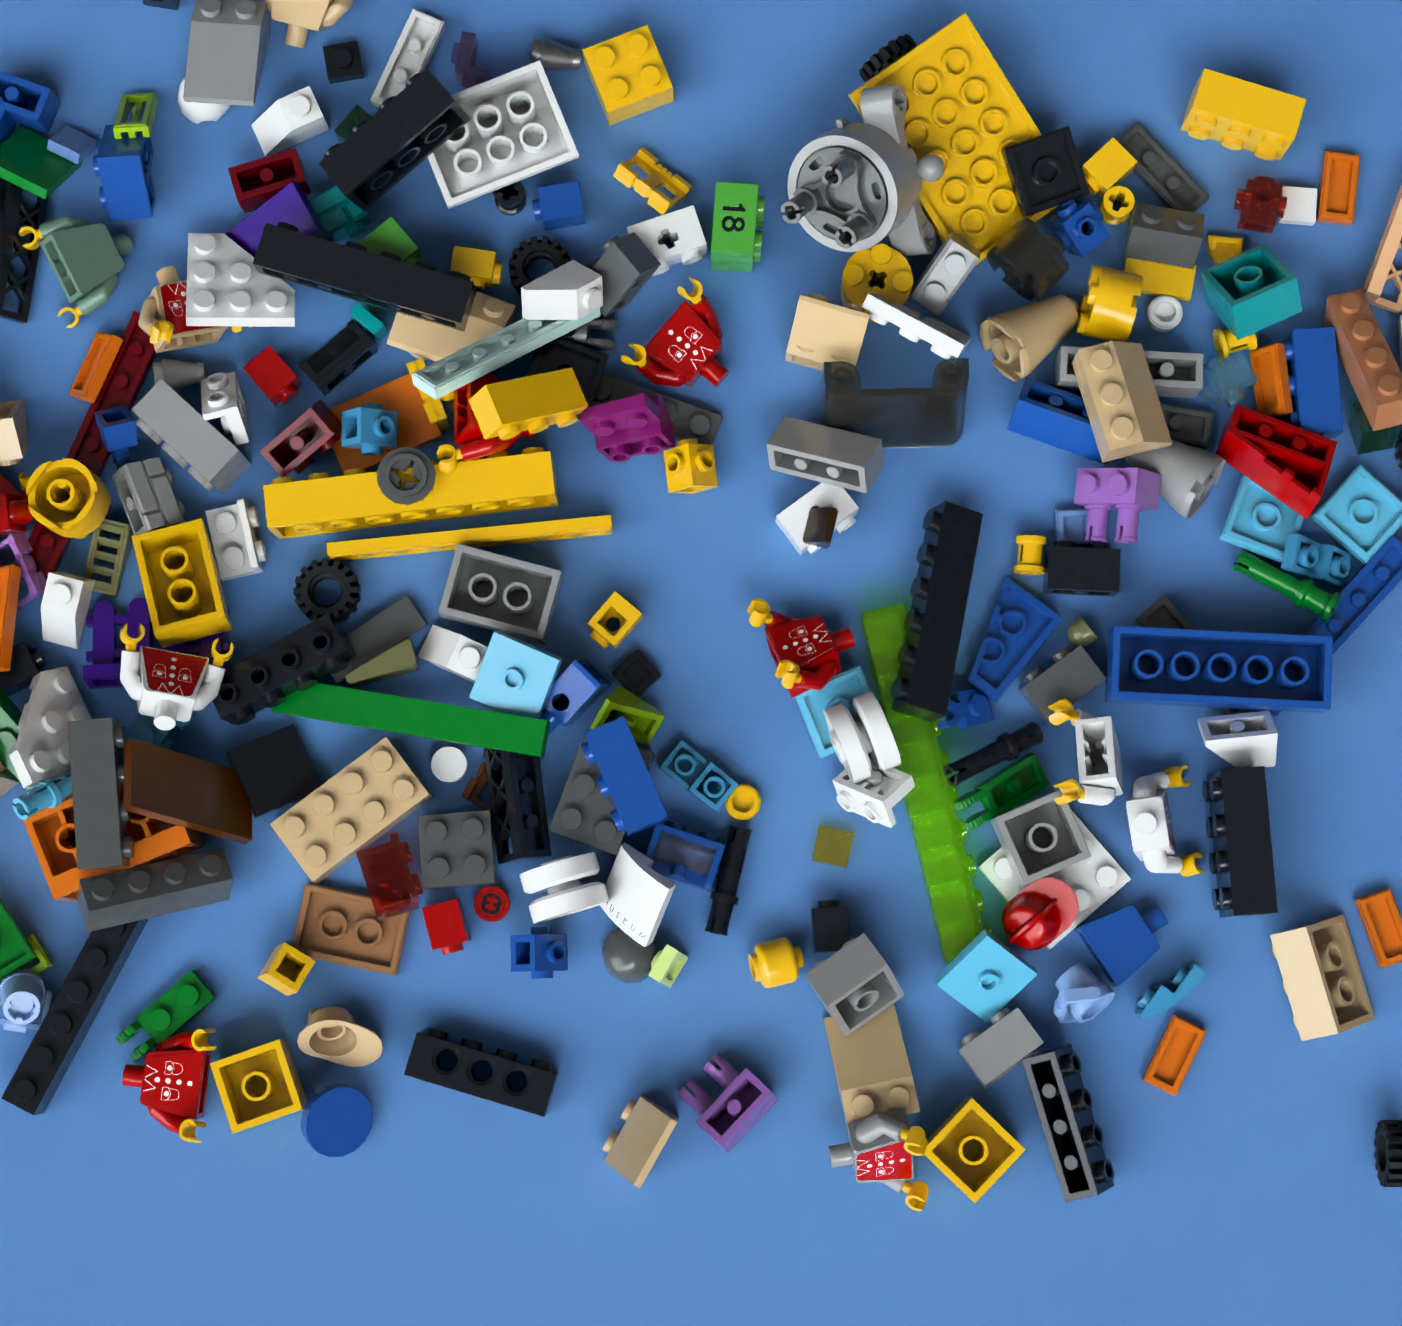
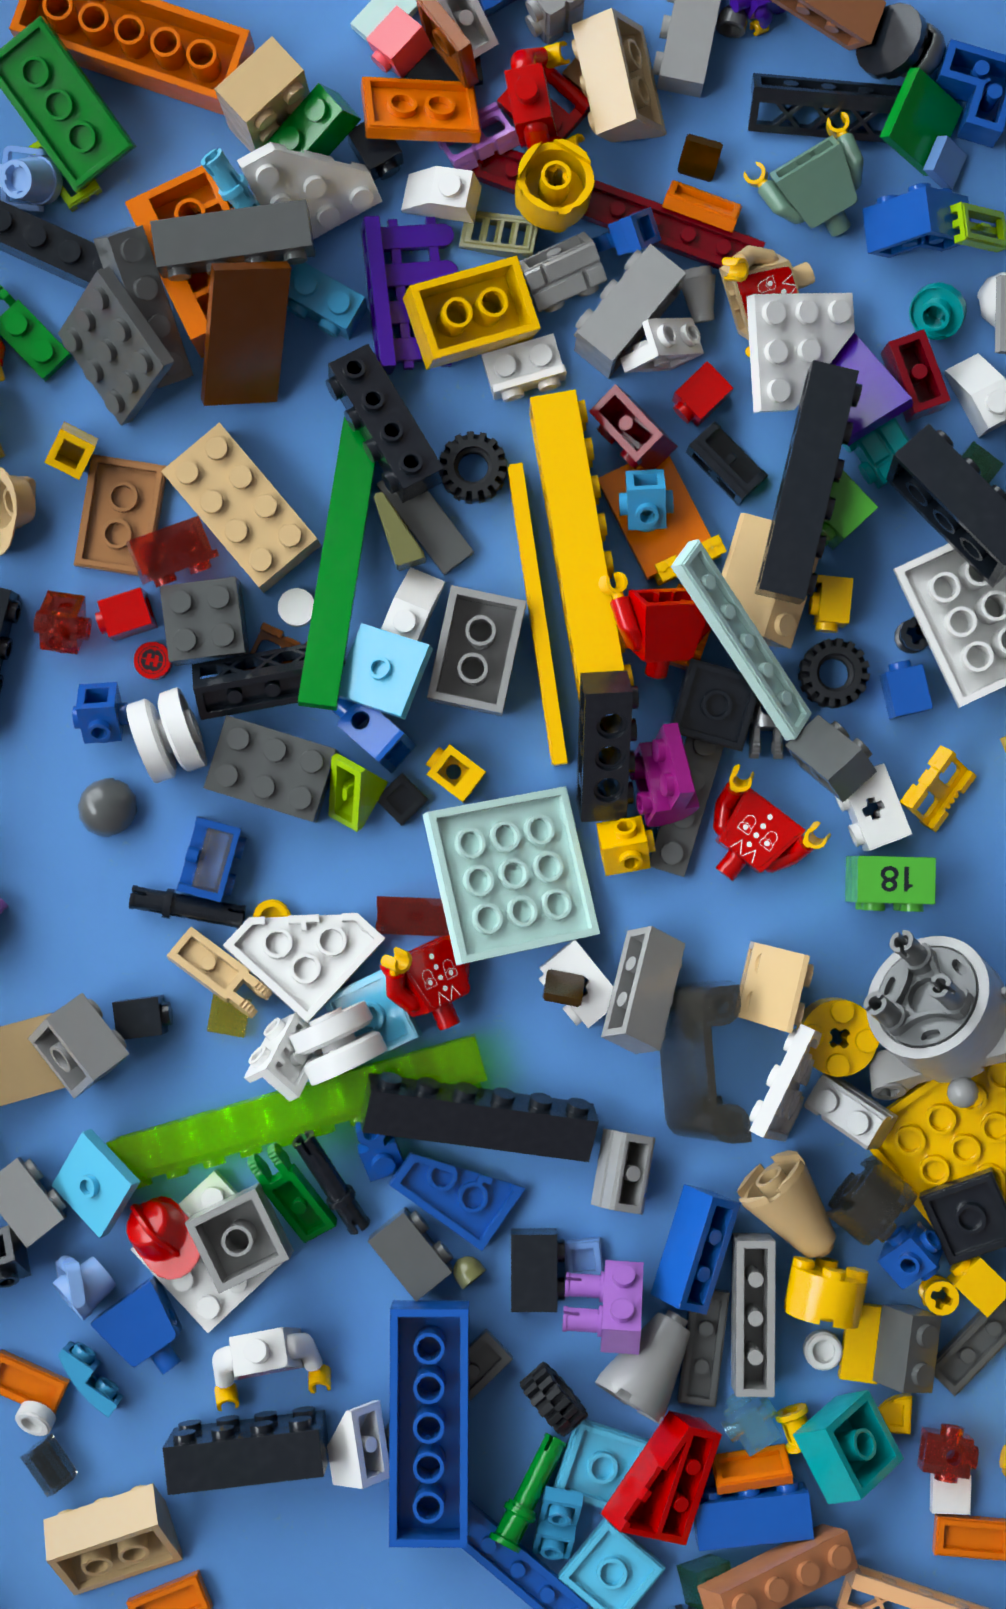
camera: 85 degrees right, 5 degrees up
(49, 367) = (699, 157): none -> dark brown slope
(169, 682) = (359, 305): torso -> none
(190, 919) = (115, 346): none -> dark grey plate
(209, 157) = (938, 310): none -> teal plate
(273, 770) = (280, 424): black tile -> none
(368, 322) = (765, 492): teal tile -> none
(400, 460) = (608, 534): dark grey gear -> none
(451, 985) = (62, 622): none -> clear red brick
(528, 404) = (674, 667): yellow brick -> none
(563, 294) = (804, 698): white slope -> none
(597, 476) = (603, 695): none -> black brick
(624, 777) = (280, 792): blue brick -> none
(636, 895) = (162, 811): white slope -> none
(667, 965) = (95, 847): yellowish green plate -> none
(698, 776) = (296, 870): dark azure slope -> none
(712, 571) = (510, 874): none -> light aqua plate
(747, 666) = (411, 916): none -> clear red hinge
(775, 962) = (102, 961): yellow head -> none
(779, 770) = (304, 955): none -> white plate
(790, 853) = (216, 970): none -> tan hinge
(992, 483) = (623, 1171): none -> light grey brick
(1030, 555) = (549, 1213): yellow bush -> none
(1096, 754) = (330, 1294): white torso -> none
(1120, 399) = (716, 1309): tan slope -> none
(1200, 556) = (553, 1399): none -> black tyre
(1206, 1046) = (35, 1418): none -> white tile
(1252, 1036) = (49, 1465): none -> clear smoke piece

